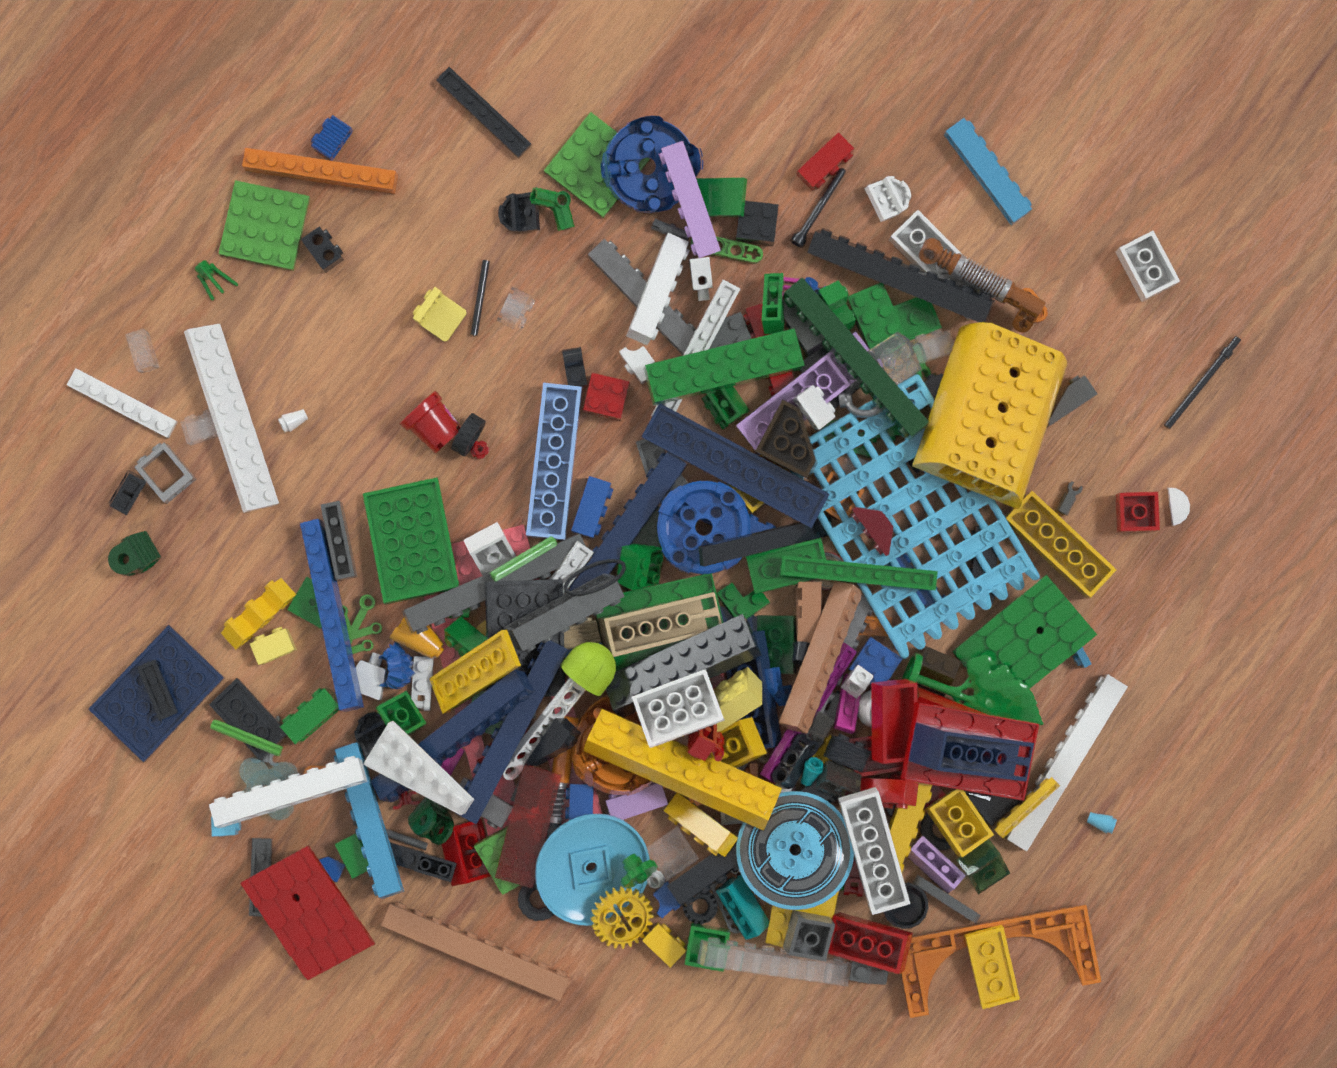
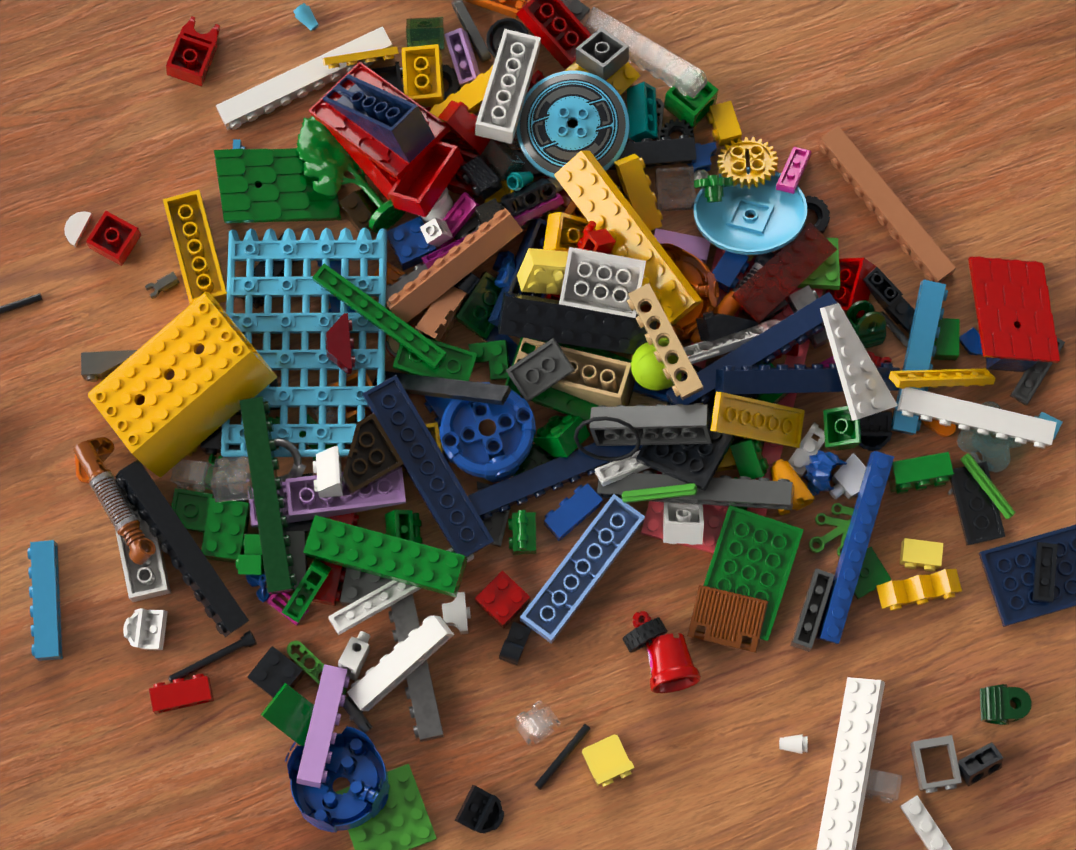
camera: 150 degrees left, 10 degrees down
(337, 810) = (937, 378): none -> yellow plate
(407, 492) = (727, 618): none -> dark orange window
(561, 211) = (443, 790): green piece -> none
(576, 934) = (793, 170): none -> dark pink tile
(622, 463) = (524, 532): none -> green brick
(630, 716) = (643, 296): none -> tan brick
(688, 605) = (540, 370): none -> dark grey tile
(1182, 732) = (192, 54): none -> red brick

